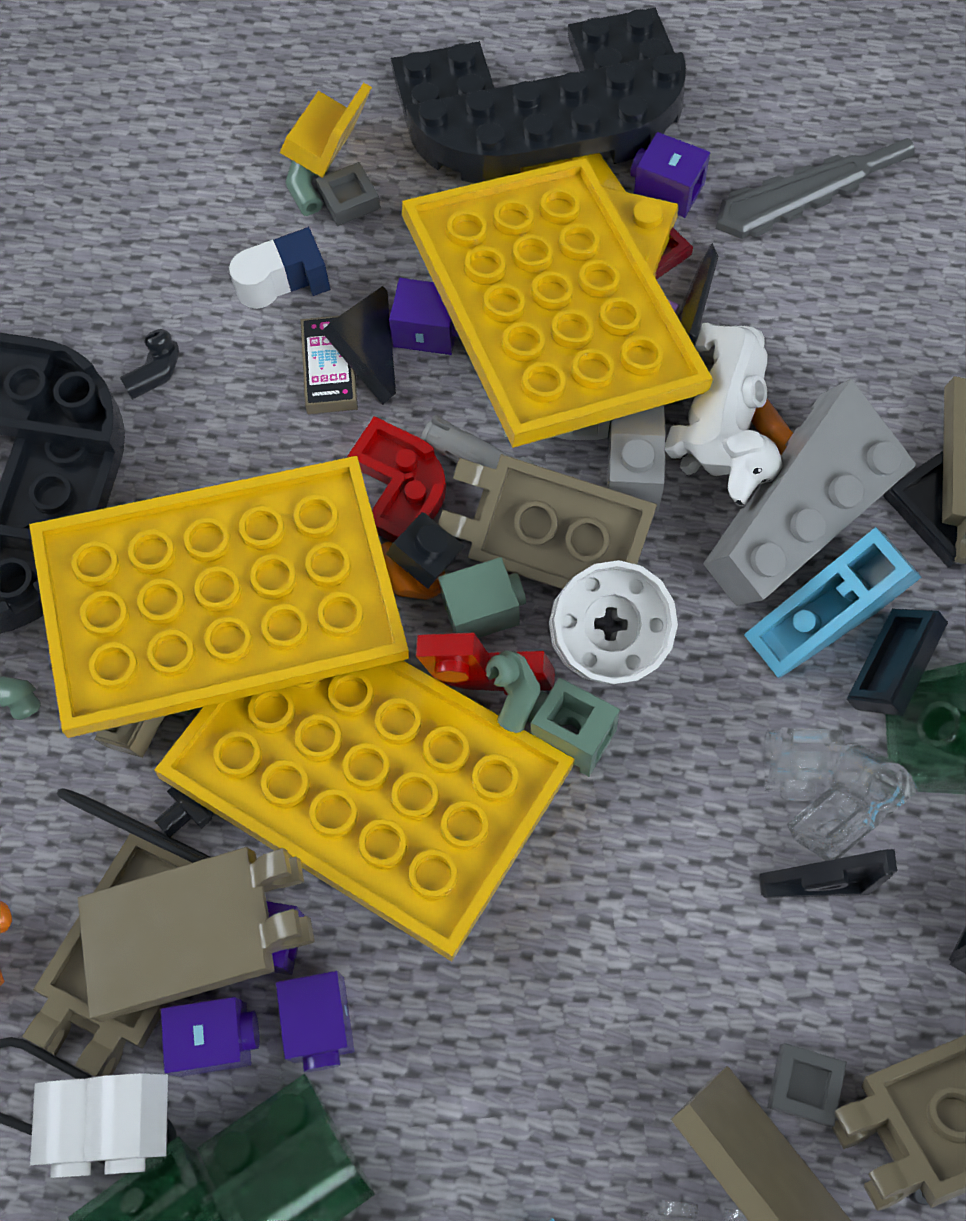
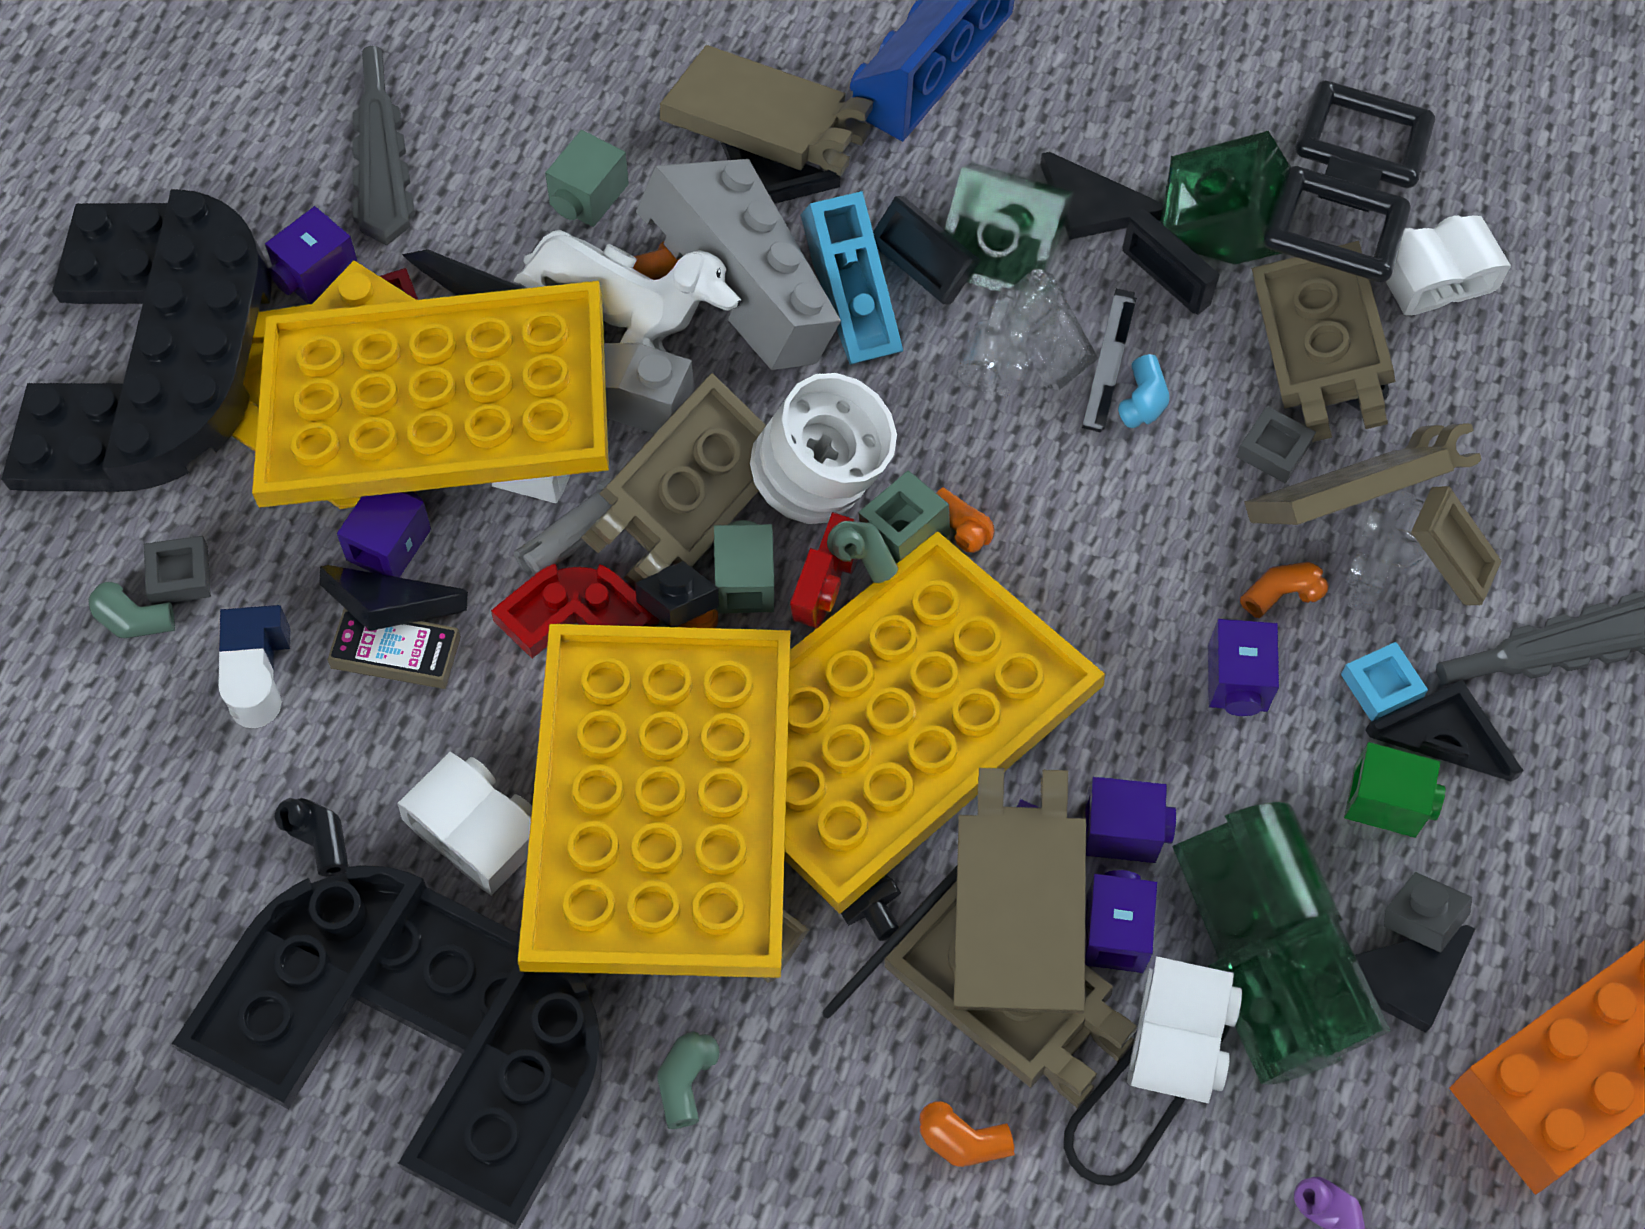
camera: 80 degrees left, 5 degrees down
(181, 456) = (470, 820): none -> white brick
(323, 130) = (91, 560): yellow panel -> none
(516, 1103) = (1243, 666): none -> dark purple brick
(606, 783) = (971, 526): none -> orange arm
(643, 1130) = (1284, 579): none -> orange arm
(815, 934) = (1151, 395): none -> medium azure arm
(843, 346) = (586, 178): none -> sand green brick

